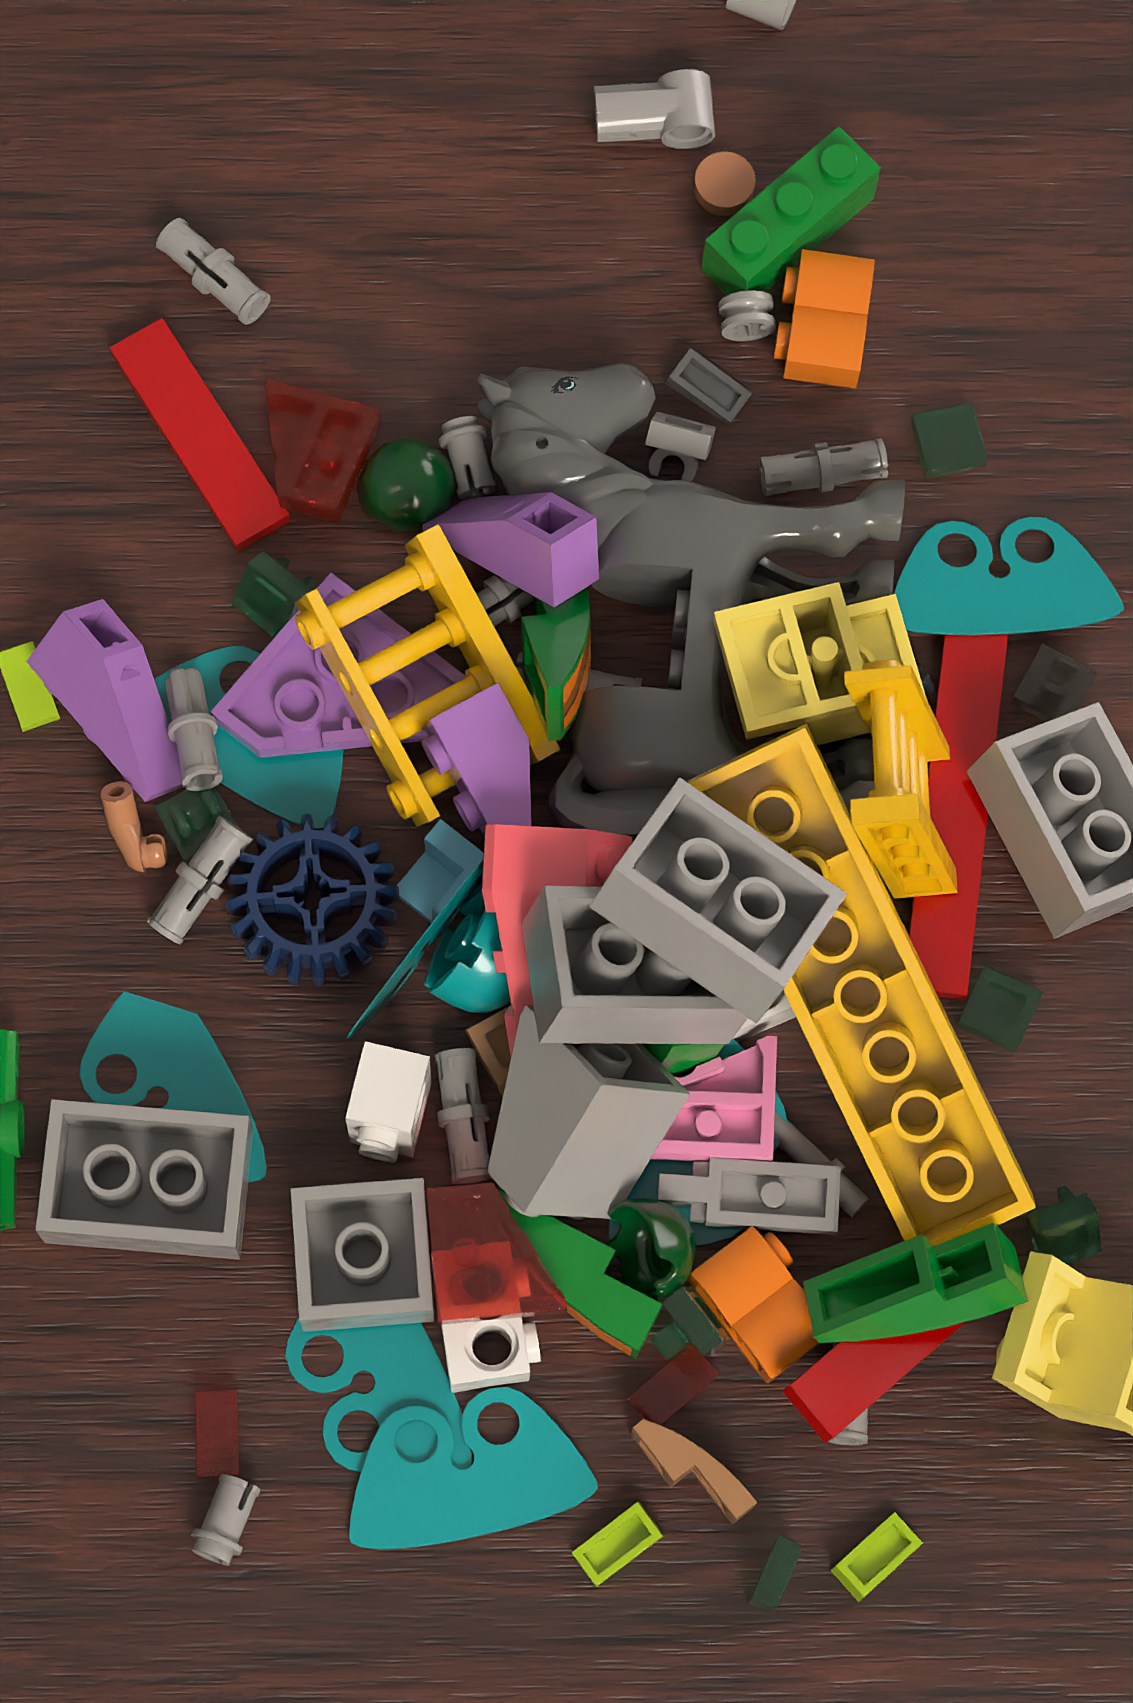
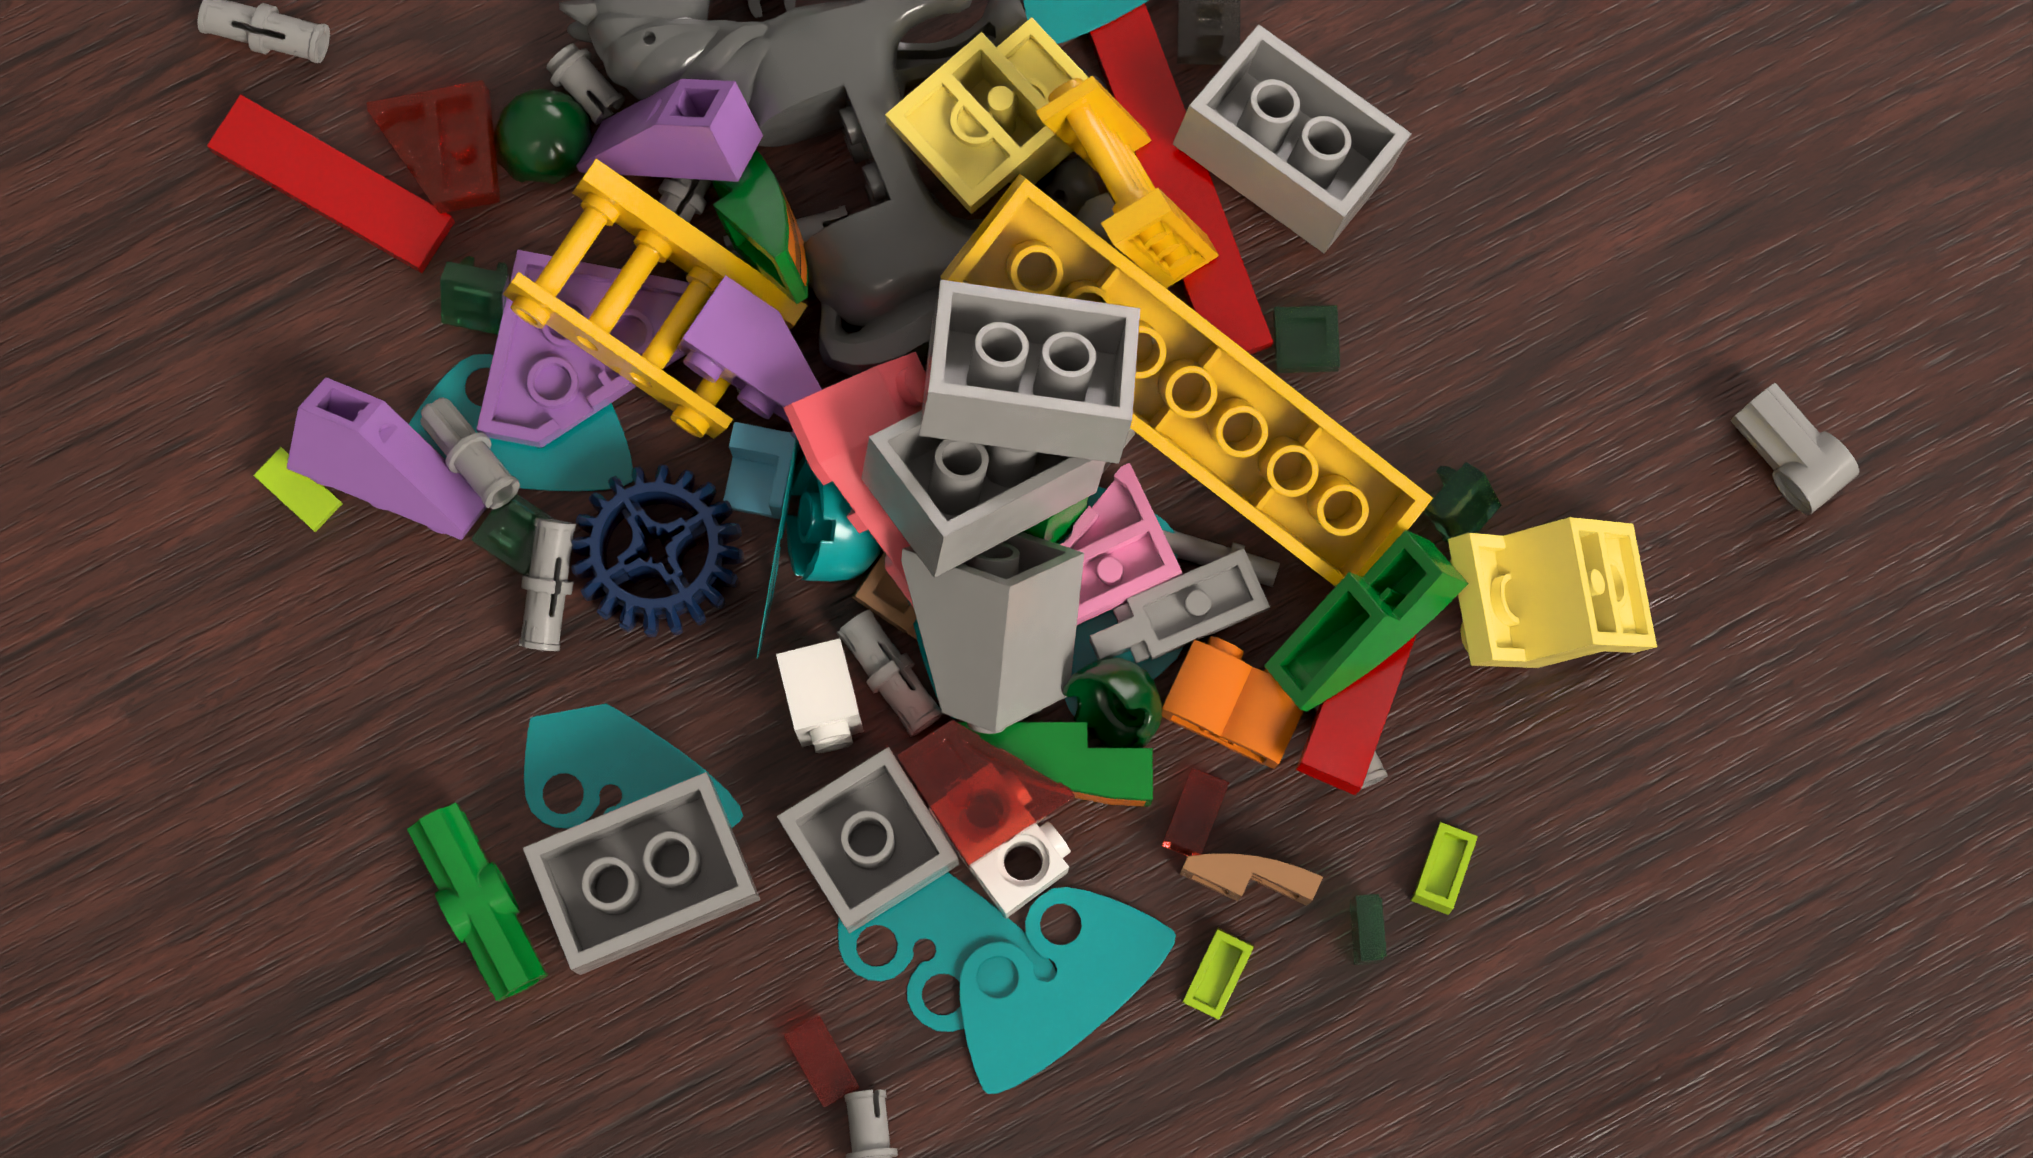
camera: 25 degrees left, 5 degrees up
(125, 827) = (454, 571): nougat arm -> none
(692, 1325) = (1185, 751): clear green tile -> none

